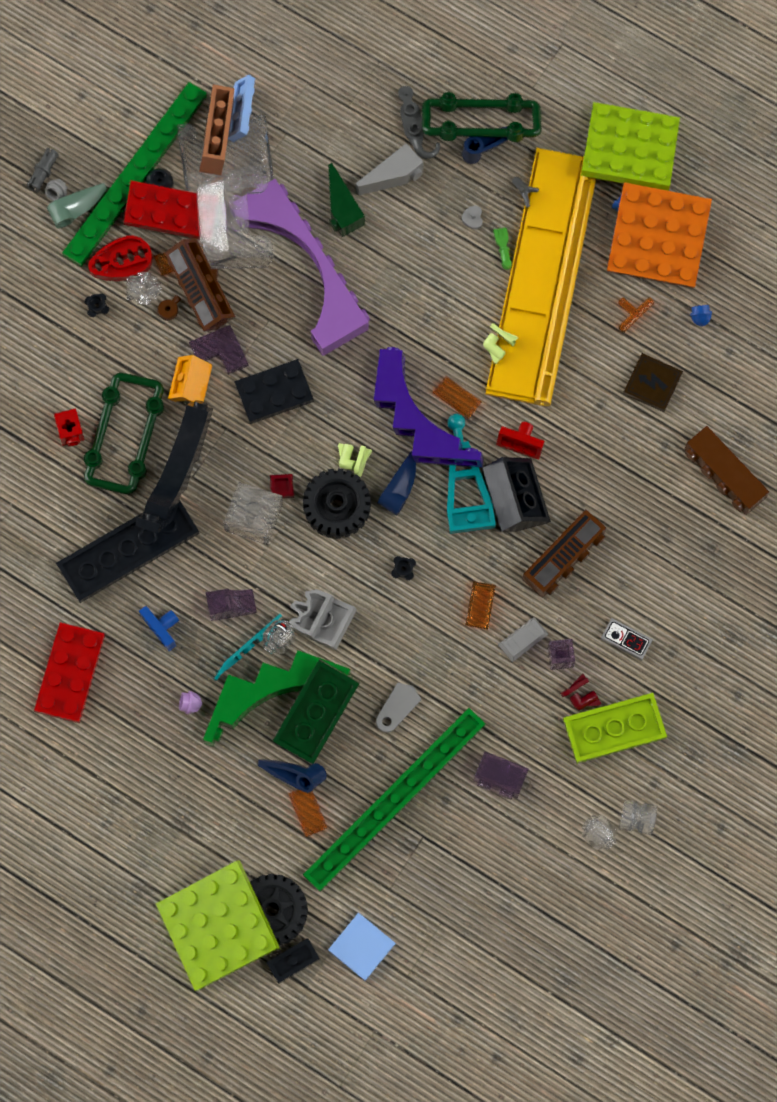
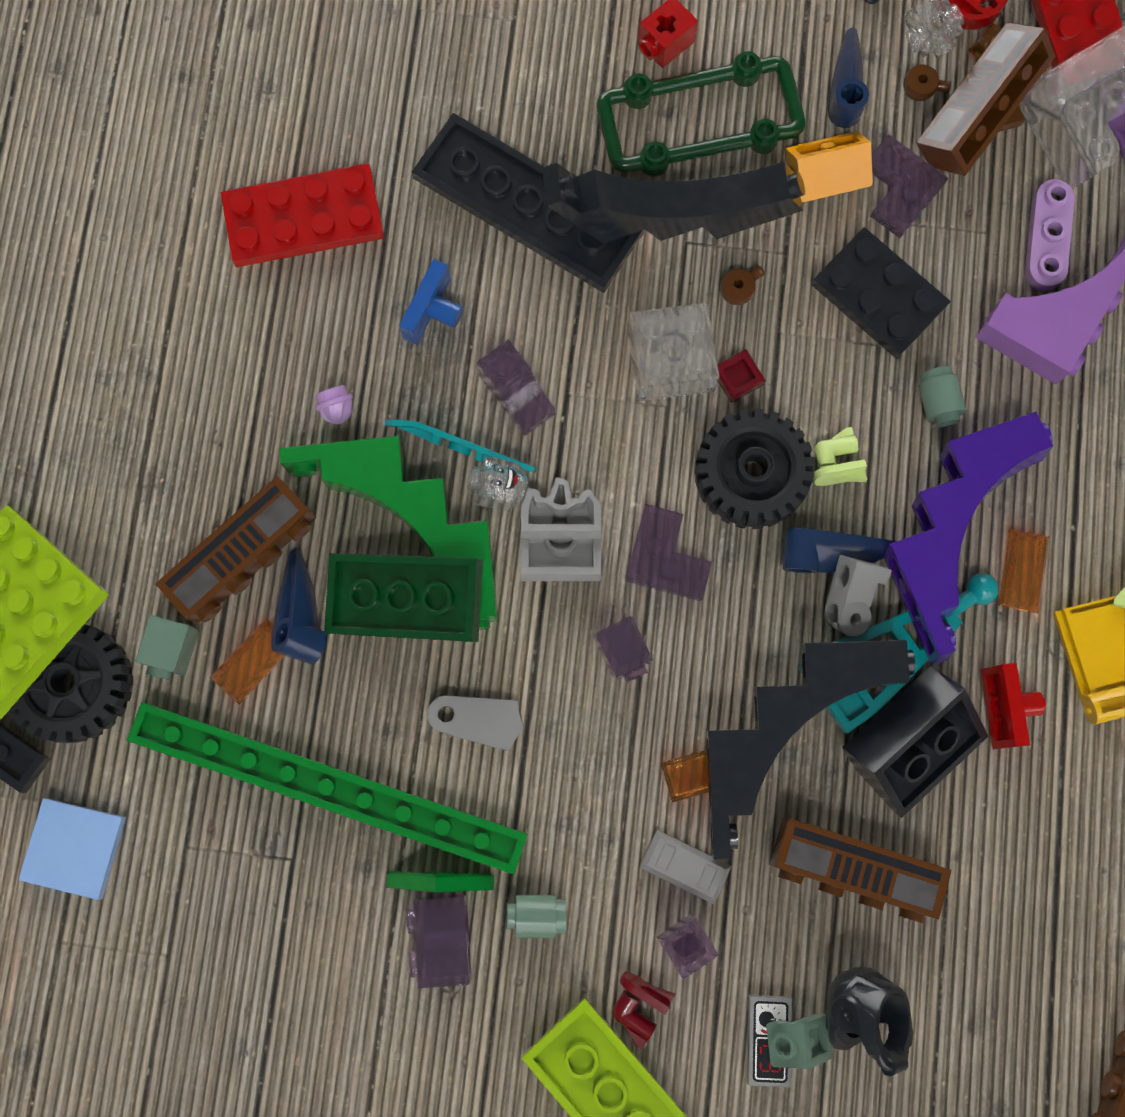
camera: 65 degrees right, 5 degrees up
(147, 347) = (847, 90): none -> dark blue piece
(232, 456) = (742, 278): none -> reddish brown piece
(245, 789) = (236, 551): none -> reddish brown brick
(279, 849) = (166, 647): none -> sand green brick
(294, 296) = (1041, 245): none -> lavender plate
(347, 390) = (942, 396): none -> sand green brick
(359, 577) = (656, 563): none -> clear purple tile
(399, 563) = (708, 610): black plate -> none
(399, 615) = (624, 650): none -> clear purple brick
(427, 486) = (853, 594): none -> light grey leg
(470, 764) = (440, 881): none -> green tile
(482, 582) = (742, 757): none -> black arch
(511, 722) = (537, 916): none -> sand green brick
(629, 585) = (856, 1006): none -> black helmet
(633, 624) = (799, 1042): none -> sand green bracket

